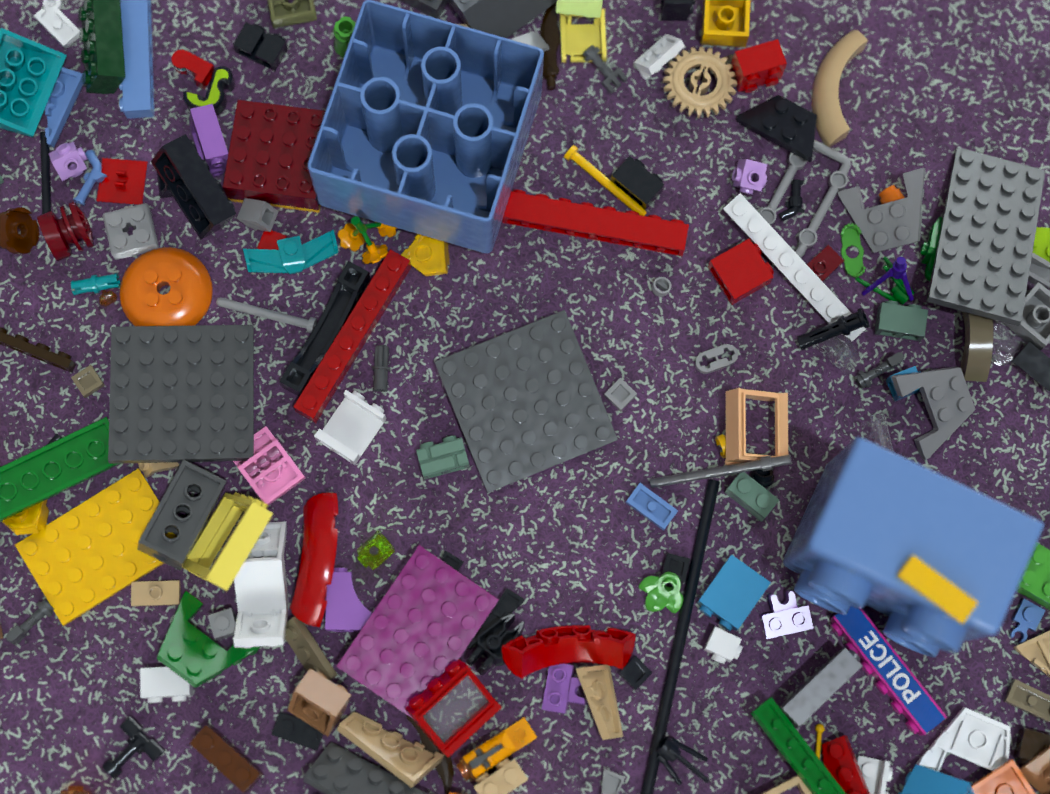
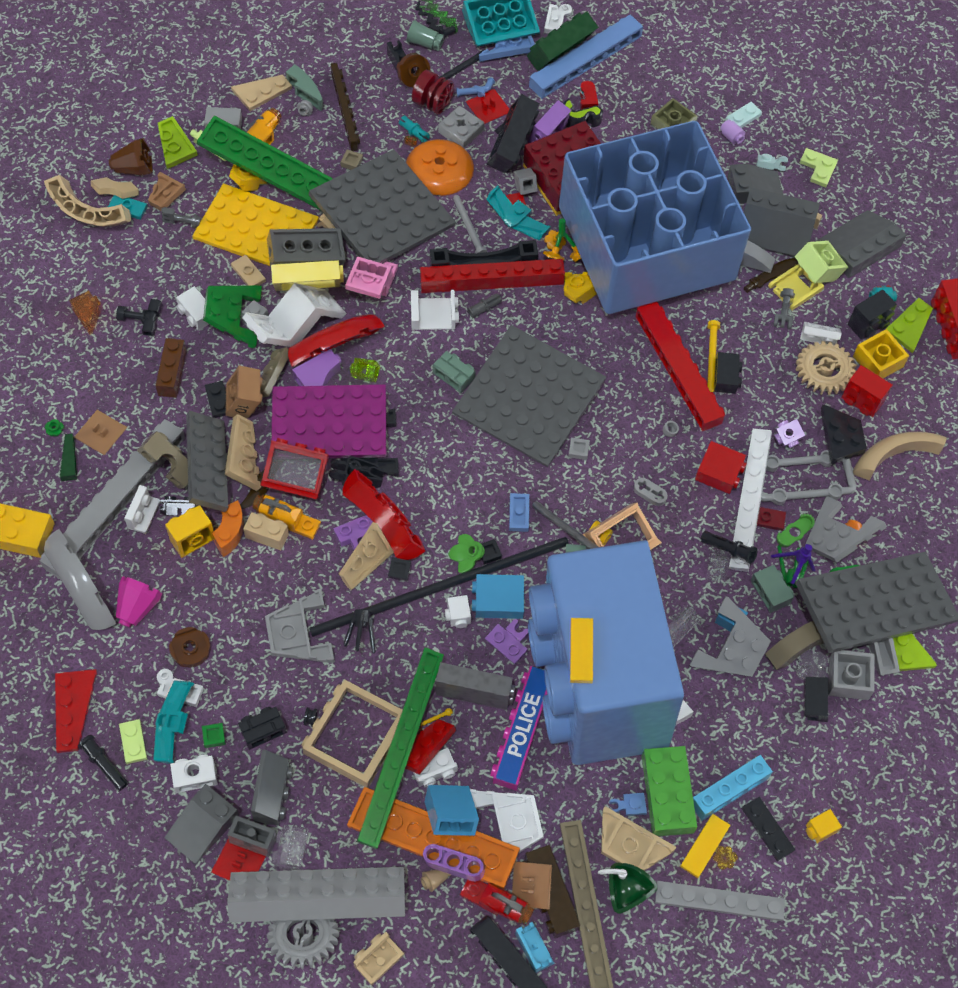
camera: 55 degrees right, 15 degrees down
(68, 160) = (477, 70): lavender brick -> none
(260, 46) = (631, 120): black piece -> none
(795, 201) = (797, 475): black piece -> none
(863, 379) = (740, 599): dark grey hinge -> none

